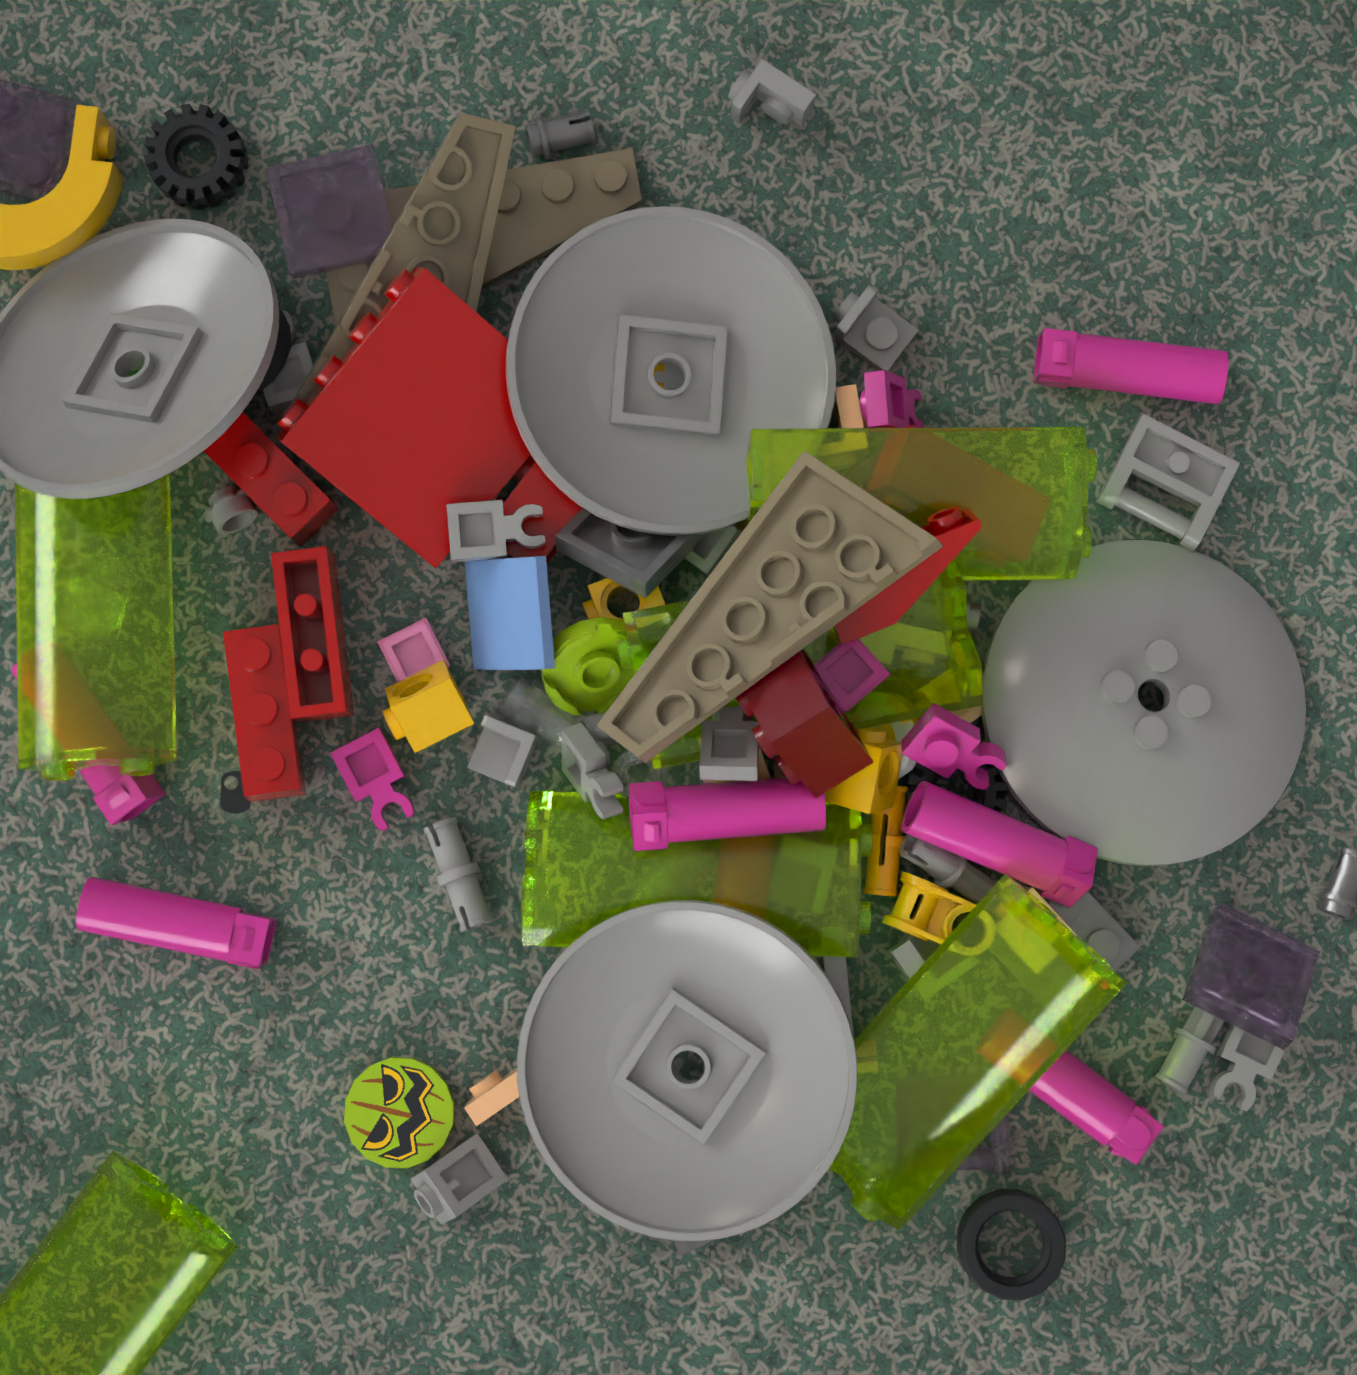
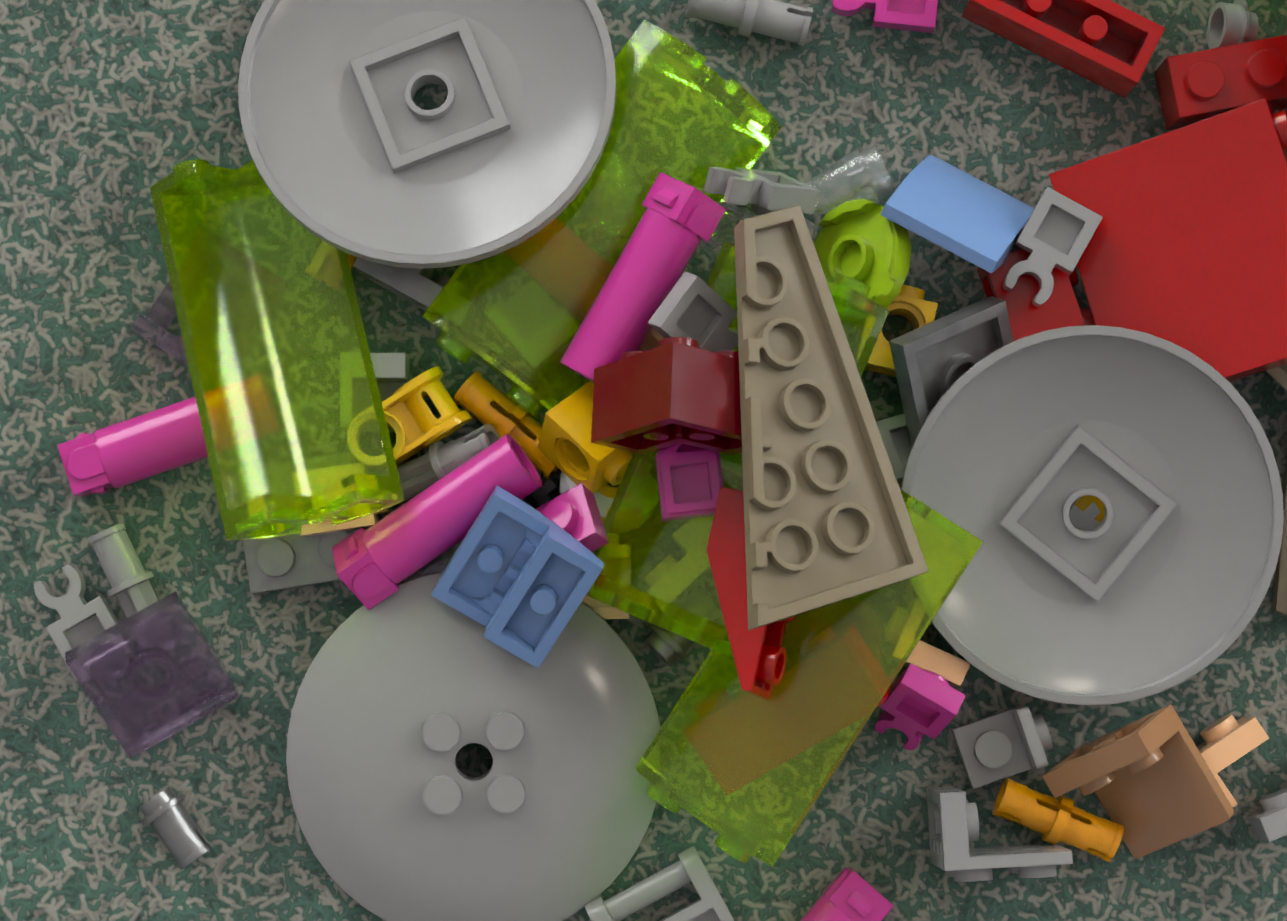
camera: 125 degrees right, 0 degrees up
(412, 649) = (981, 108): bright pink tile -> none
(426, 707) = (923, 83): yellow brick -> none
(503, 752) = (833, 127): light grey panel -> none
(766, 172) = (1227, 742): none -> light nougat bracket
(830, 210) = (1147, 781): none -> medium nougat bracket
(899, 255) = (1058, 819): none -> light orange pin
(973, 290) = (956, 822): none -> light grey bracket
(1004, 750) = (518, 577): none -> medium blue slope
(1049, 1264) = (20, 274): black tyre -> none

